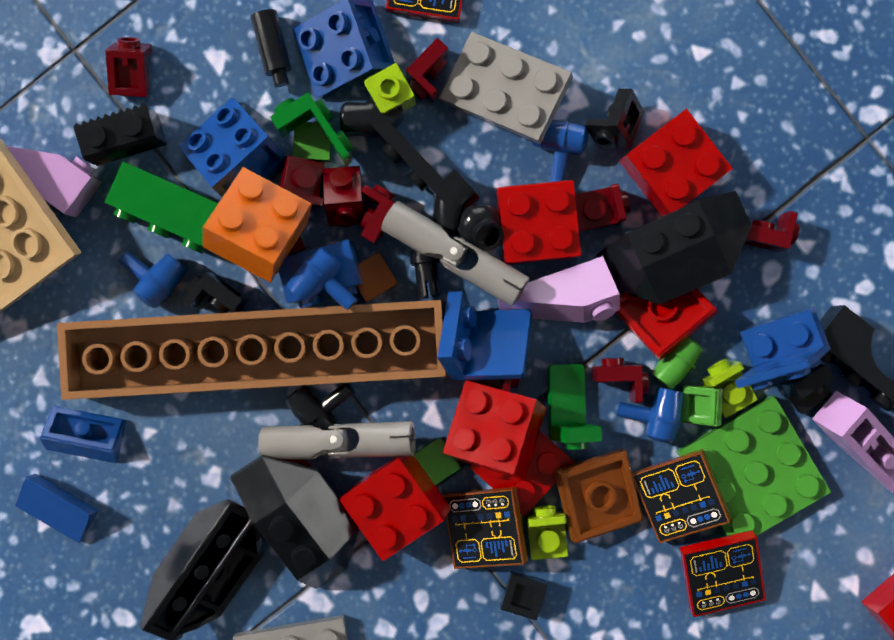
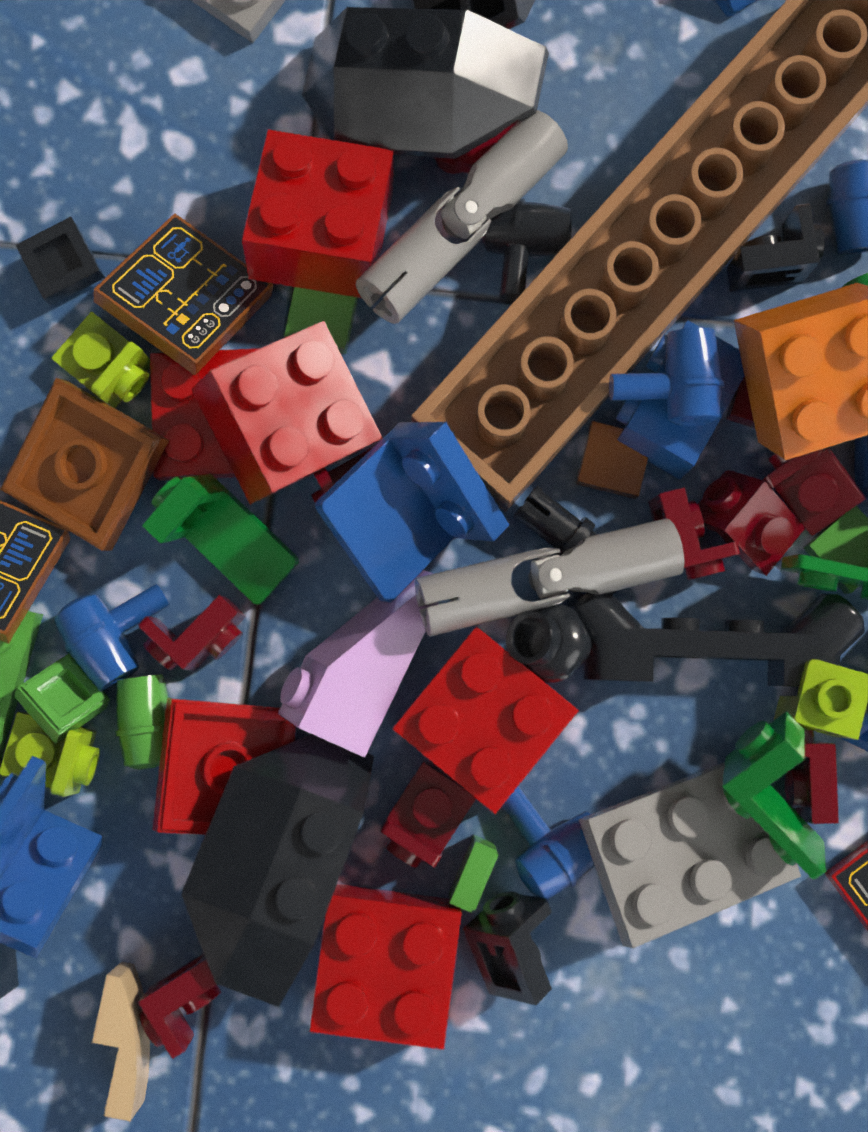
camera: 130 degrees right, 5 degrees down
(459, 88) = (760, 759): none -> green bracket
(604, 165) = (473, 874): none -> bright green tile
(806, 245) = (121, 1028): none -> tan slope

